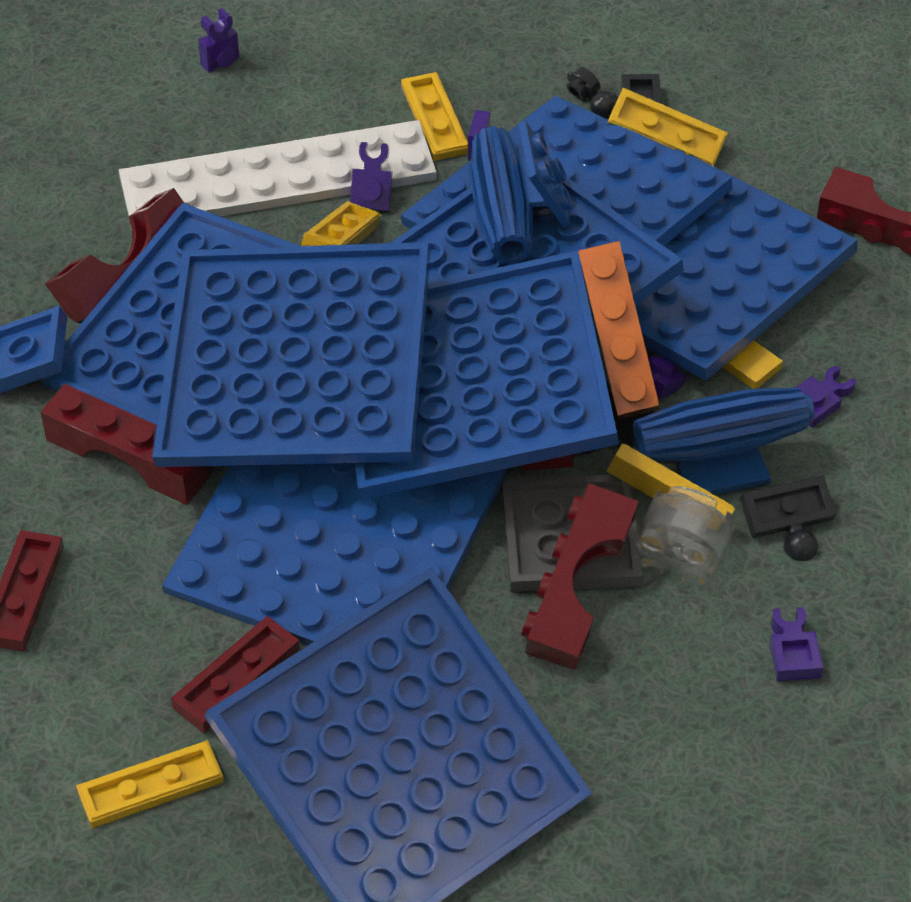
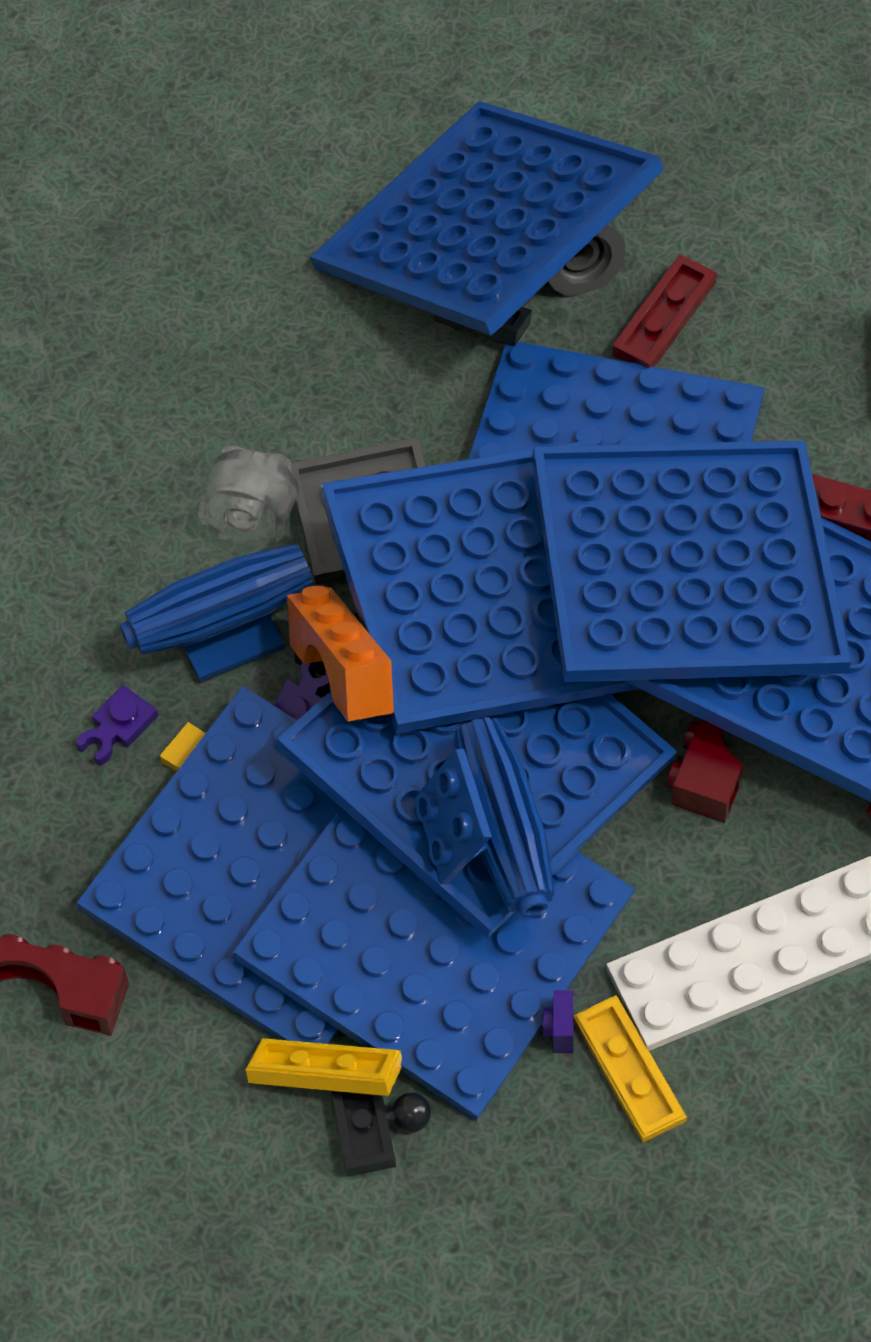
camera: 175 degrees right, 10 degrees up
(149, 784) = (713, 212): yellow tile -> none
(344, 226) = (695, 823): yellow tile -> none
(371, 185) = (679, 917): dark purple plate -> none
(583, 83) = (450, 1142): black plate -> none
(598, 530) = (361, 396): dark red arch -> none
(651, 476) = (230, 540): yellow tile -> none
(790, 509) = (142, 567): black plate -> none
(793, 650) = (132, 424): dark purple plate -> none

